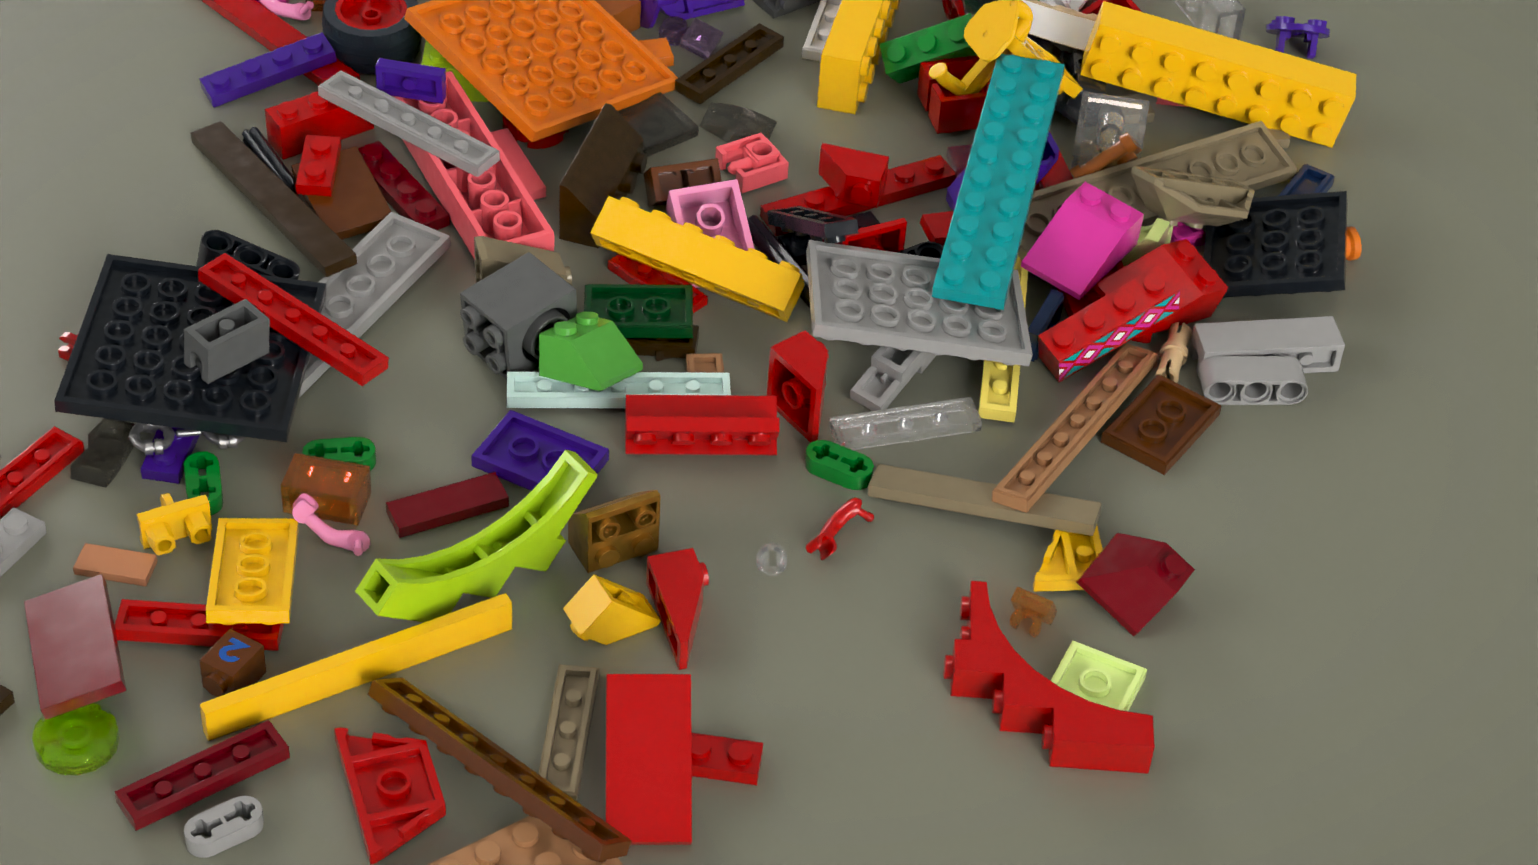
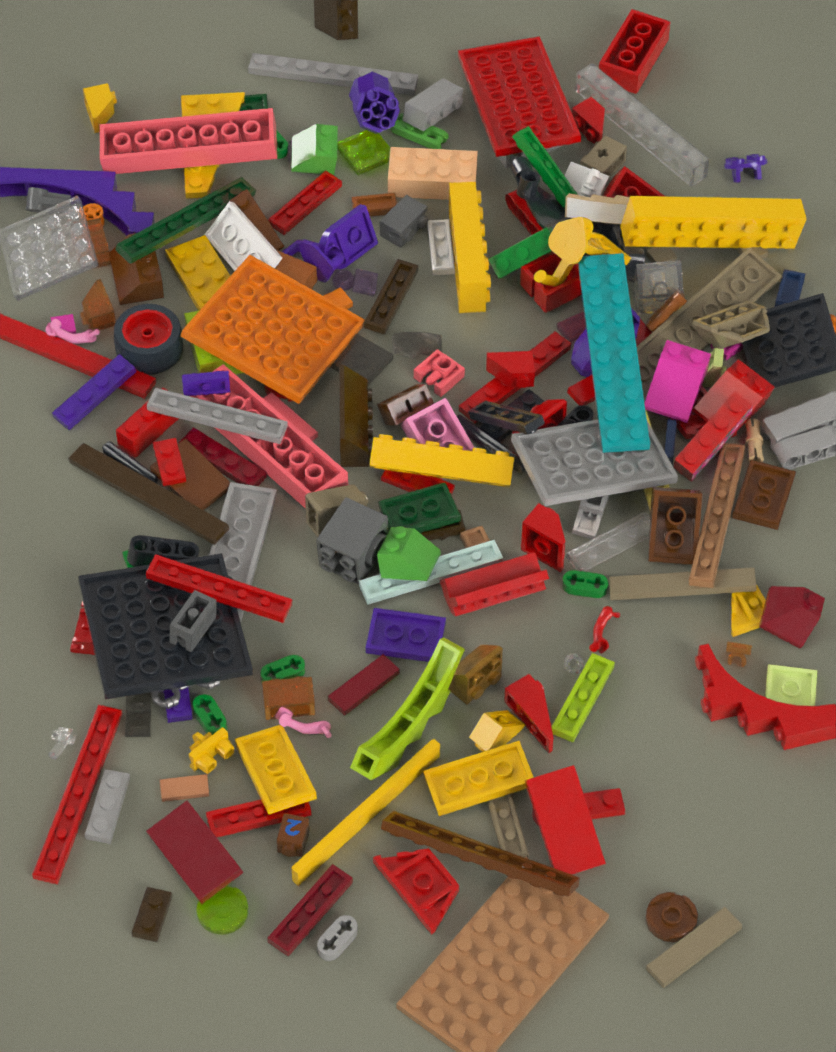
camera: 15 degrees left, 10 degrees up
(546, 666) = (478, 778): none -> yellow plate
(763, 607) = (582, 697): none -> lime plate
(1002, 417) = (674, 525): none -> reddish brown slope

